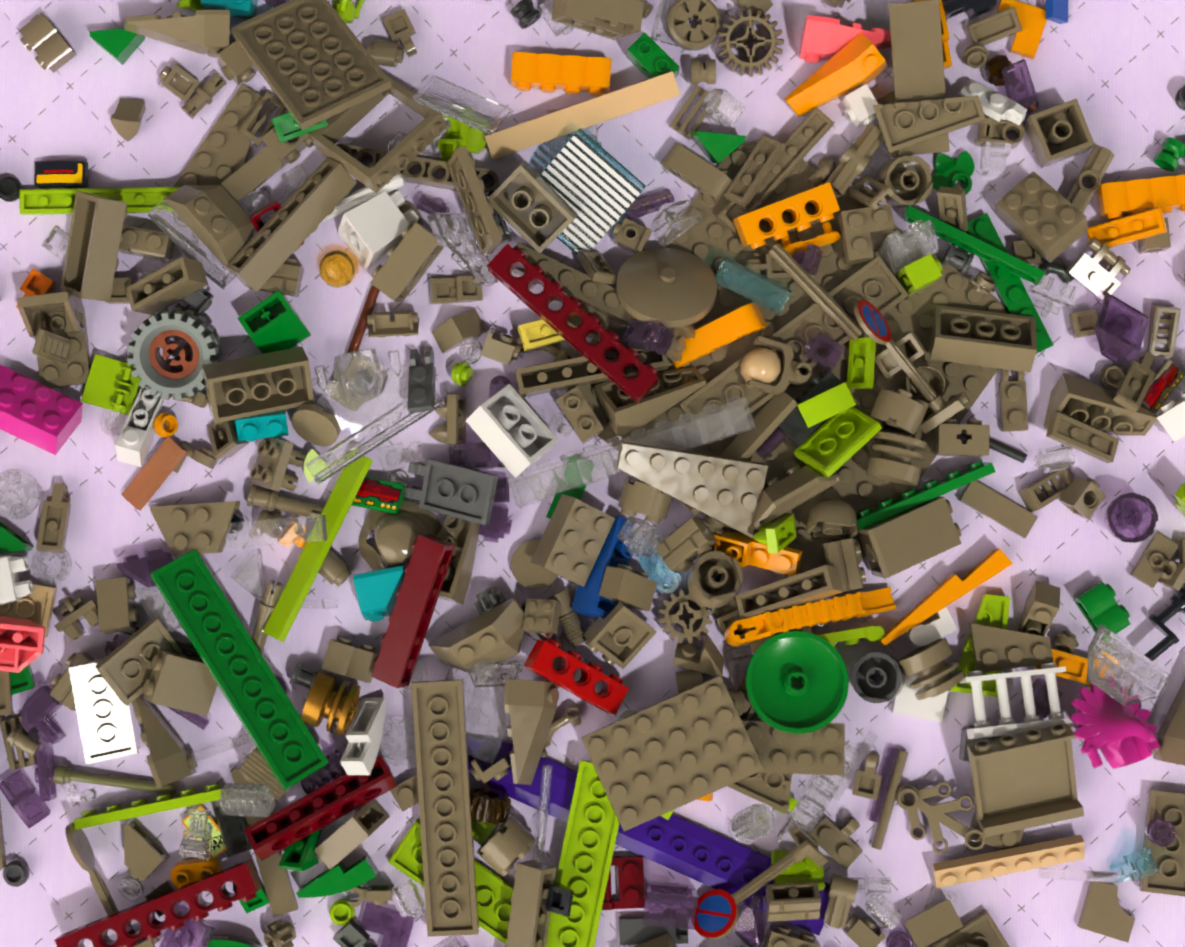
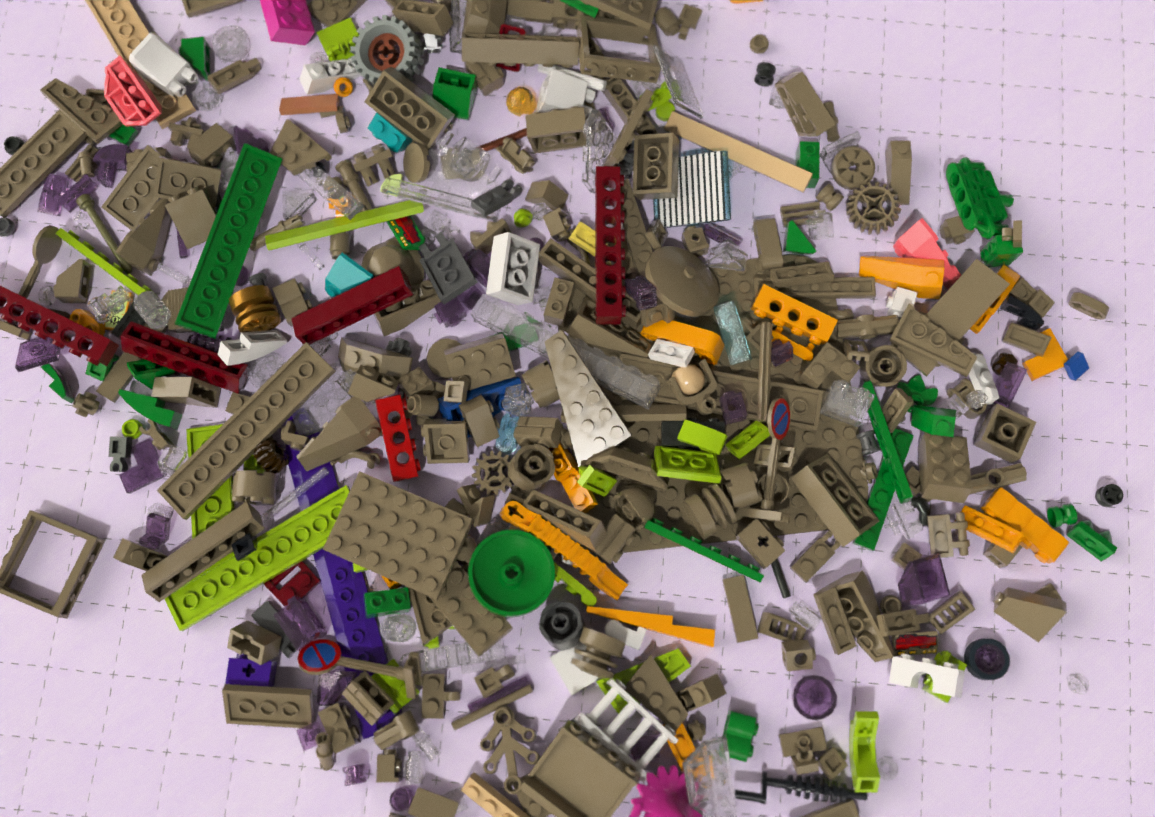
camera: 50 degrees right, 10 degrees down
(224, 439) = (359, 123): dark tan slope -> none
(454, 290) = (567, 173): dark tan slope -> none
(511, 657) = (371, 384): none -> dark tan slope
(561, 72) = (750, 121): light orange brick -> none
(569, 627) = (422, 405): none -> dark tan brick
(585, 587) = (455, 391): none -> dark tan plate
(719, 814) = (387, 602): none -> green brick
(724, 359) = (671, 353): none -> white plate
(770, 444) = (647, 429): pin -> none
(909, 537) = (670, 565): dark tan slope -> none
(920, 274) = (836, 423): lime brick -> none
(975, 55) = (999, 343): dark tan plate -> none
(994, 184) = (934, 420): none -> green slope
(1010, 130) = (976, 399): none -> clear plate

